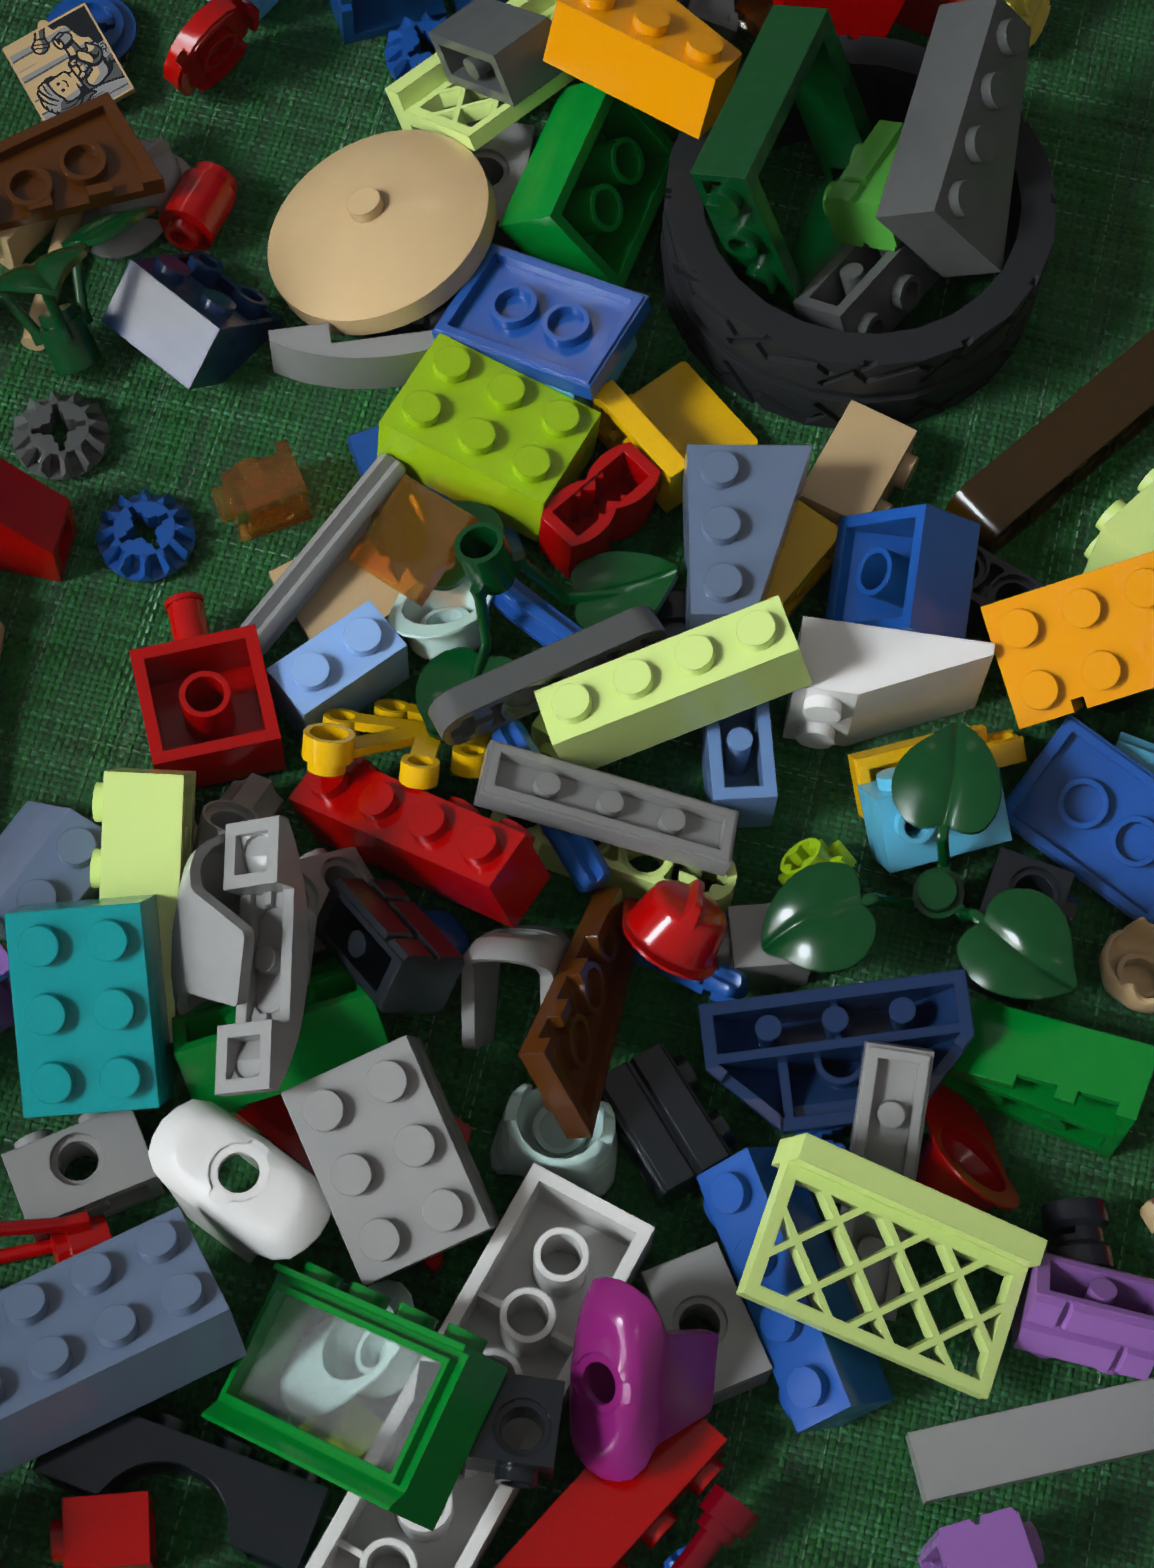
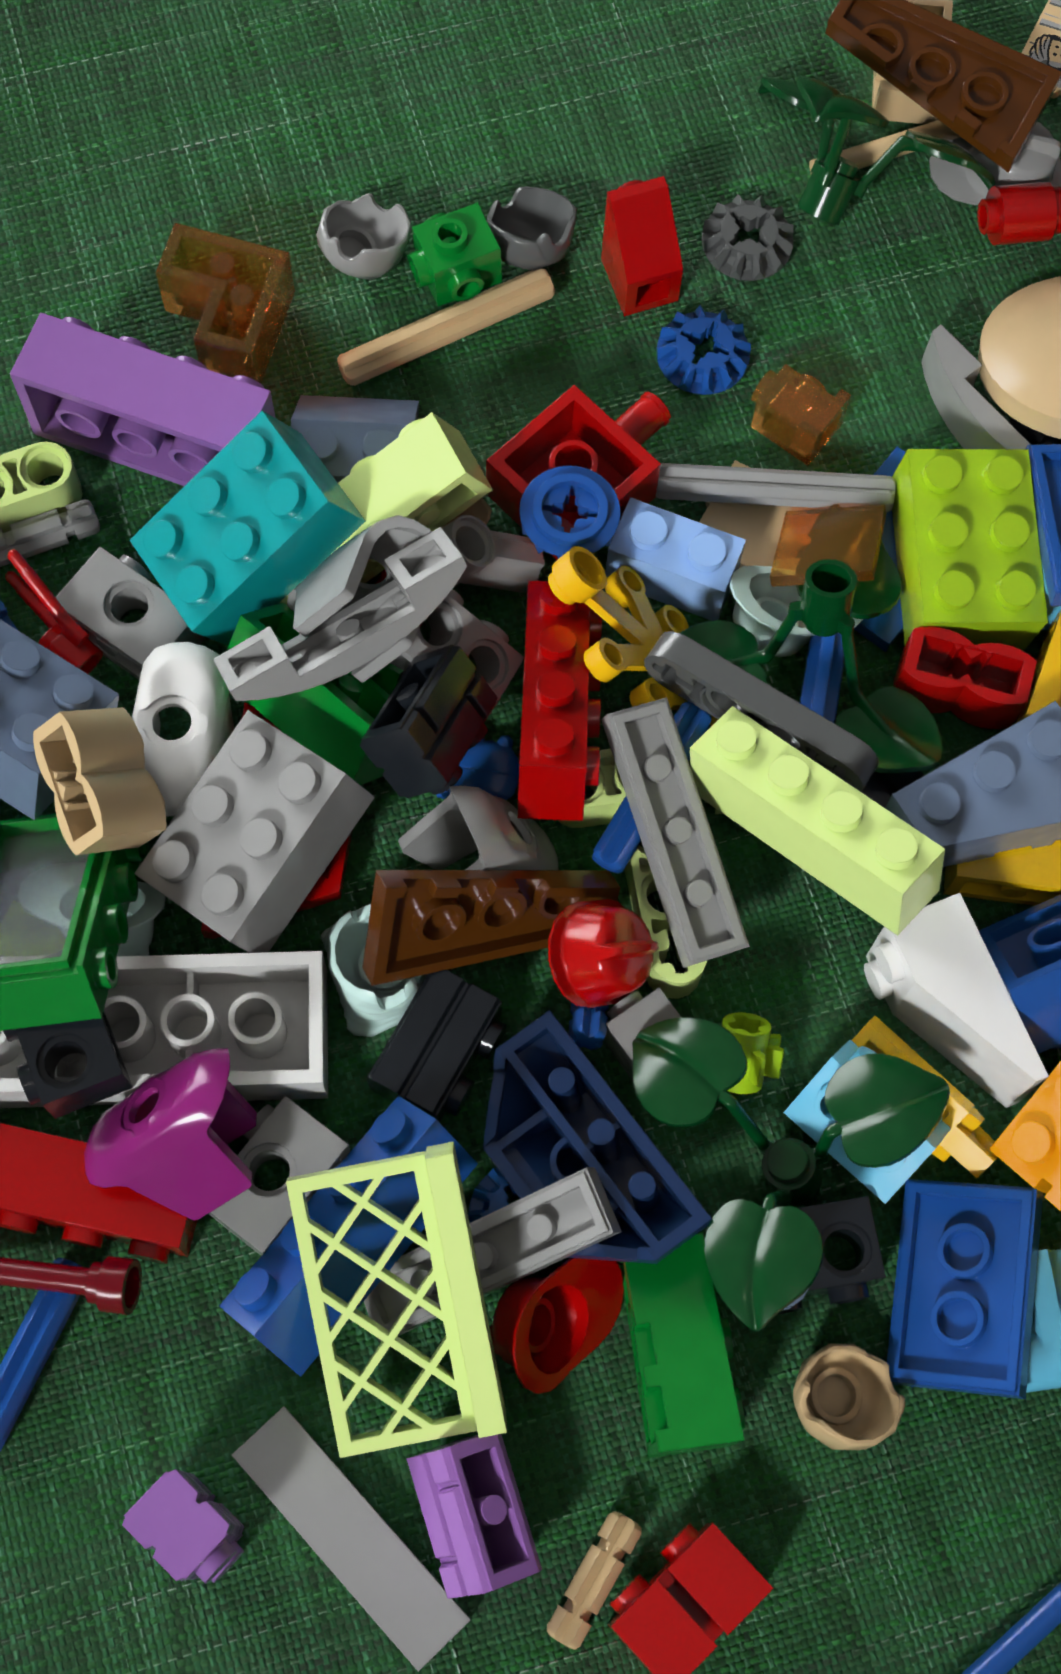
camera: 60 degrees right, 5 degrees up
(190, 316) = (917, 264): dark blue slope -> none
(256, 696) = (551, 492): none -> blue gear
(270, 1257) = (99, 780): none -> tan brick
(741, 765) = (799, 929): medium blue brick -> none
(1078, 1229) = (547, 1465): black wheel -> none

